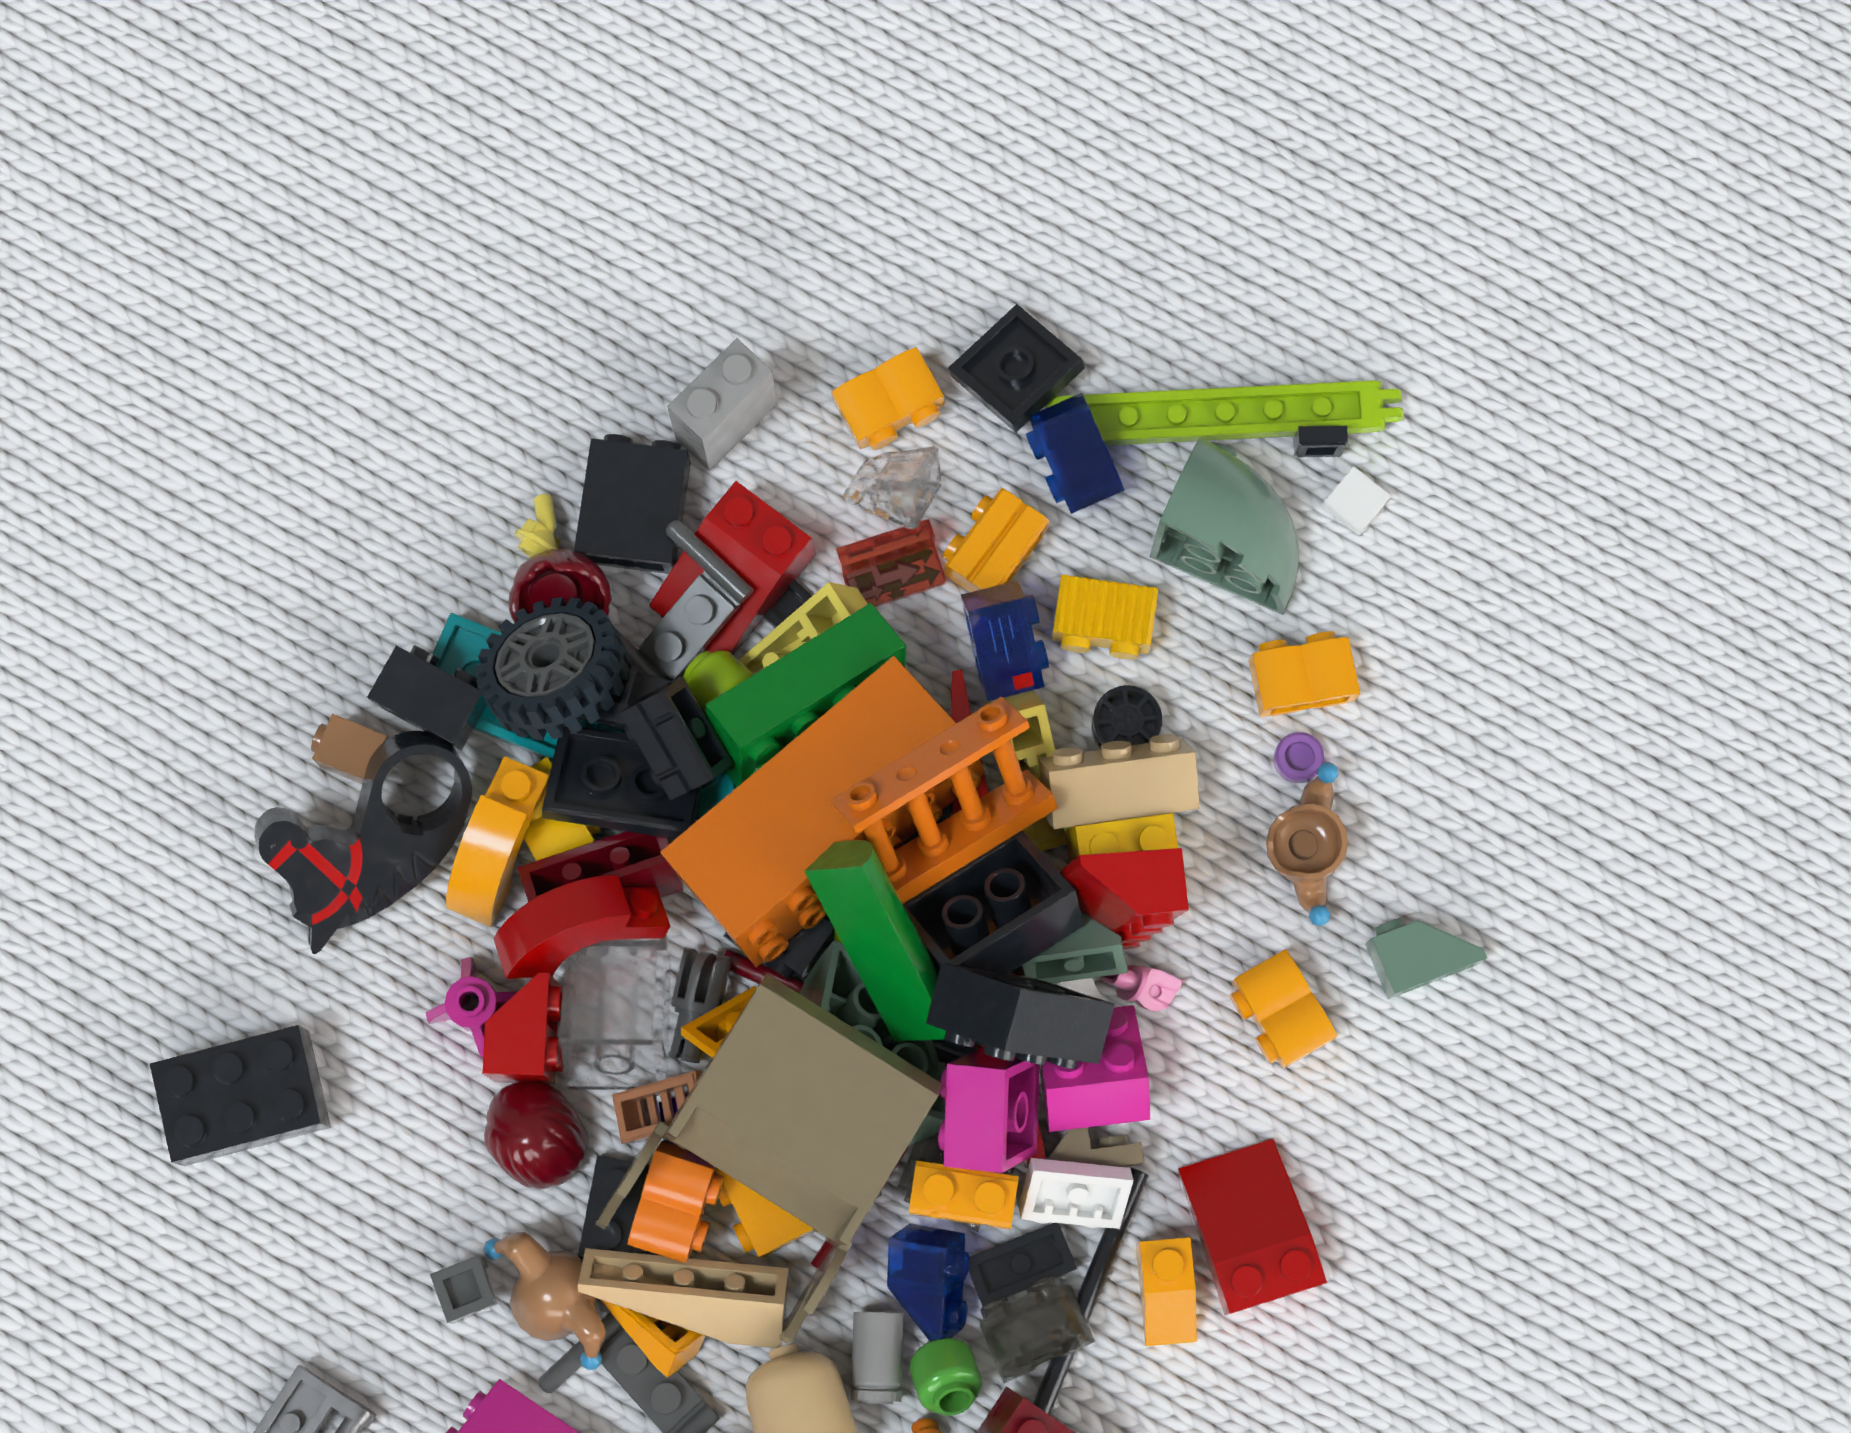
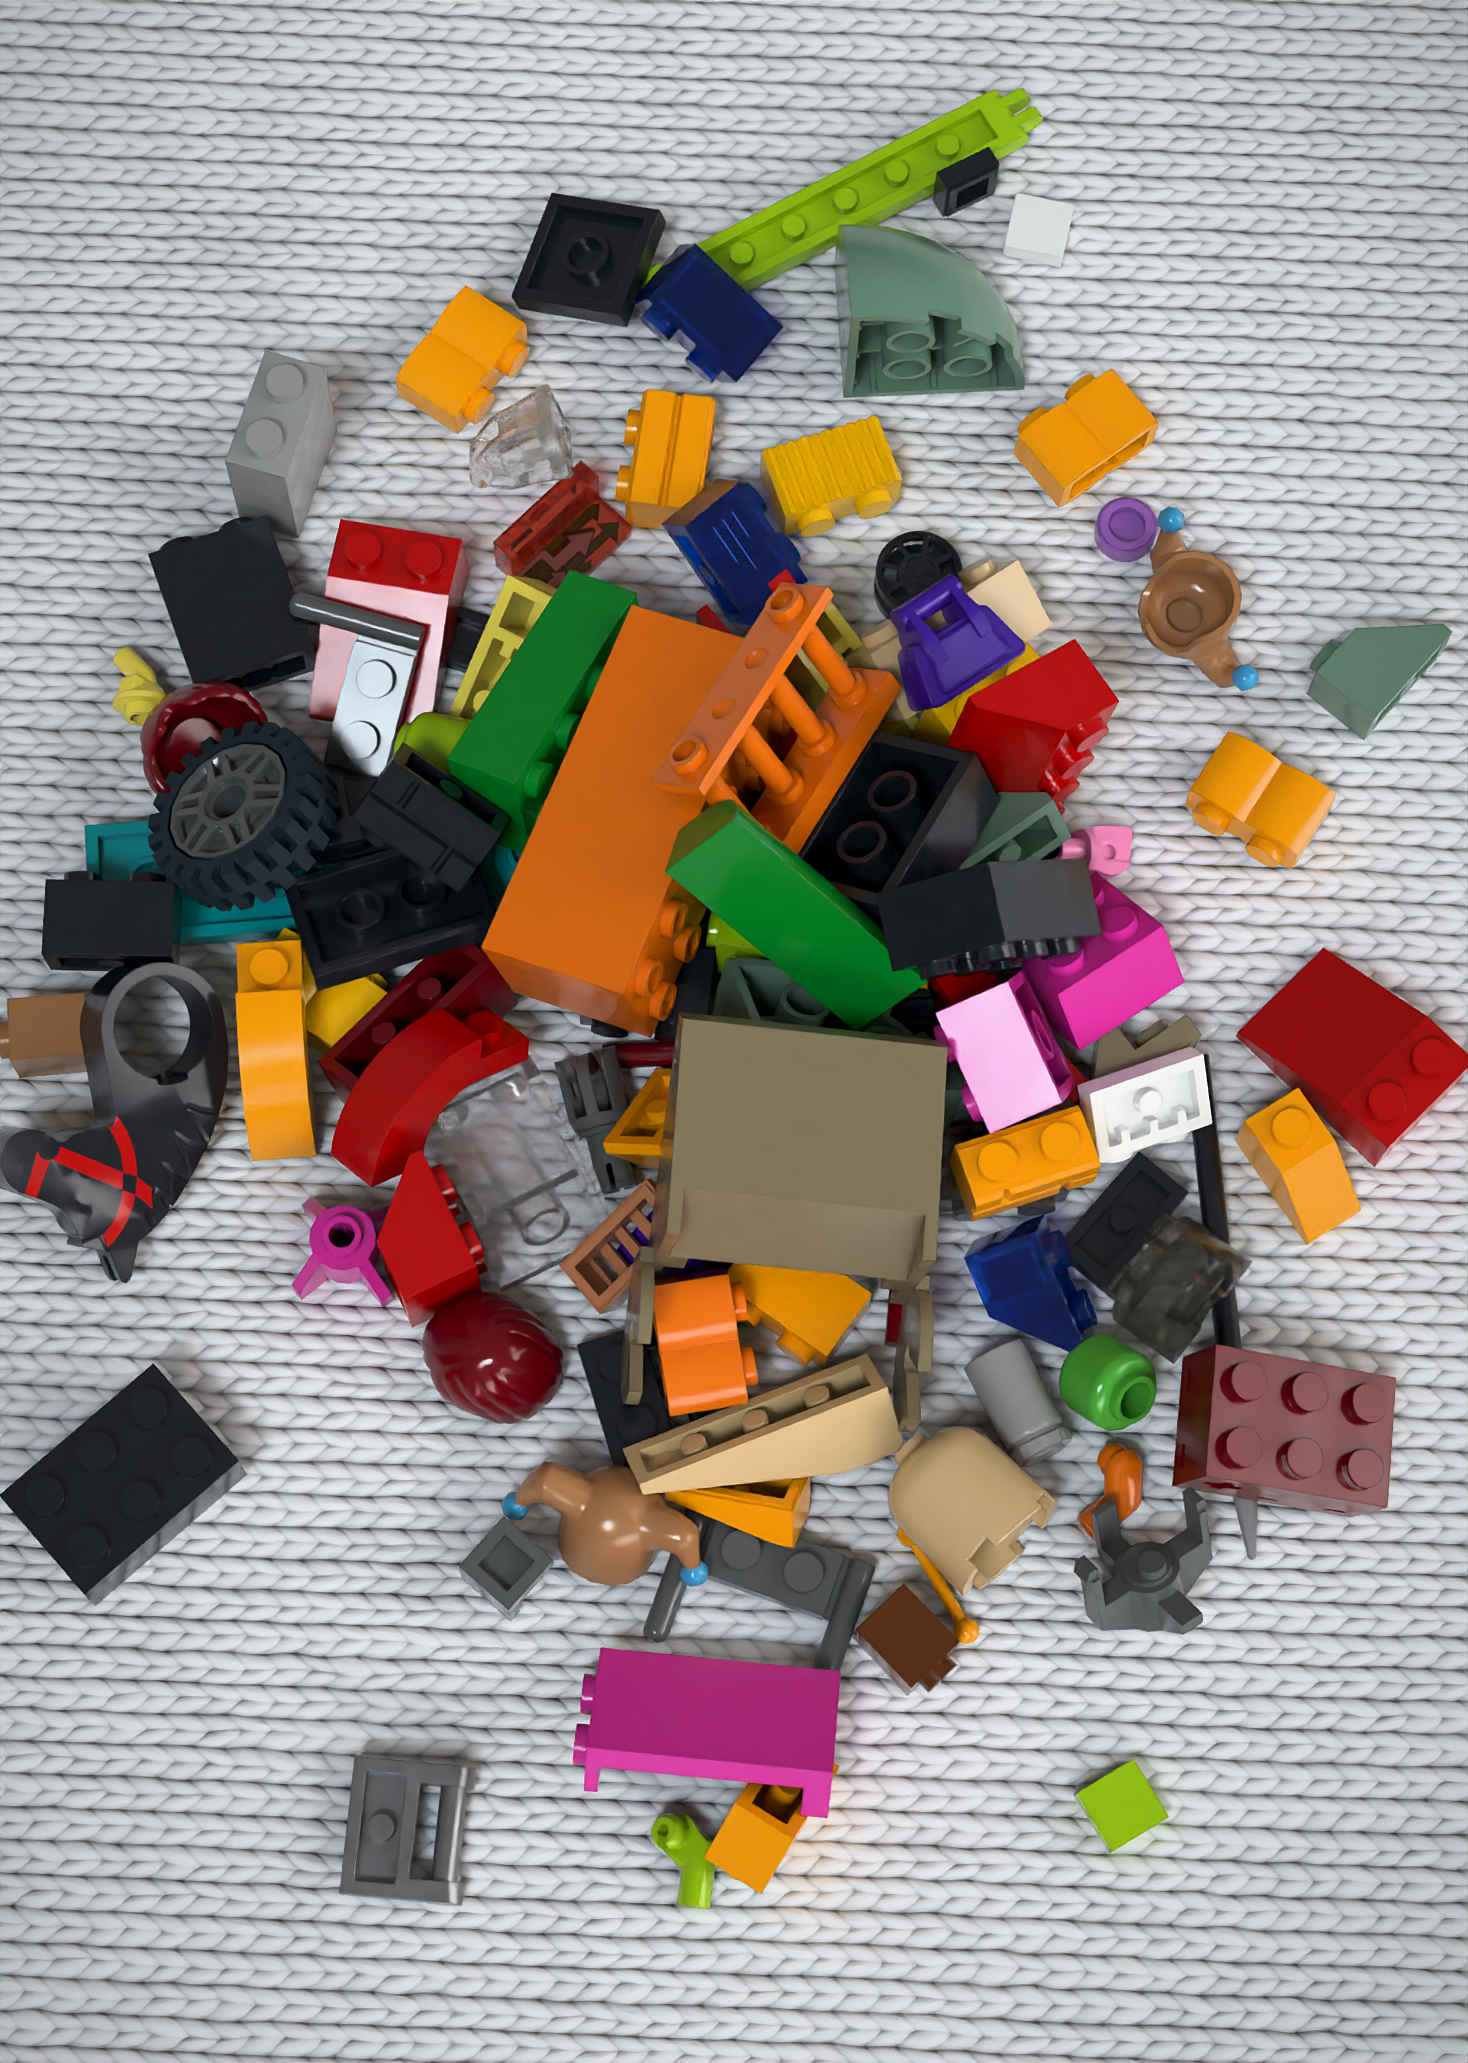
camera: 30 degrees left, 5 degrees down
(1111, 800) = (956, 653): none -> dark purple piece

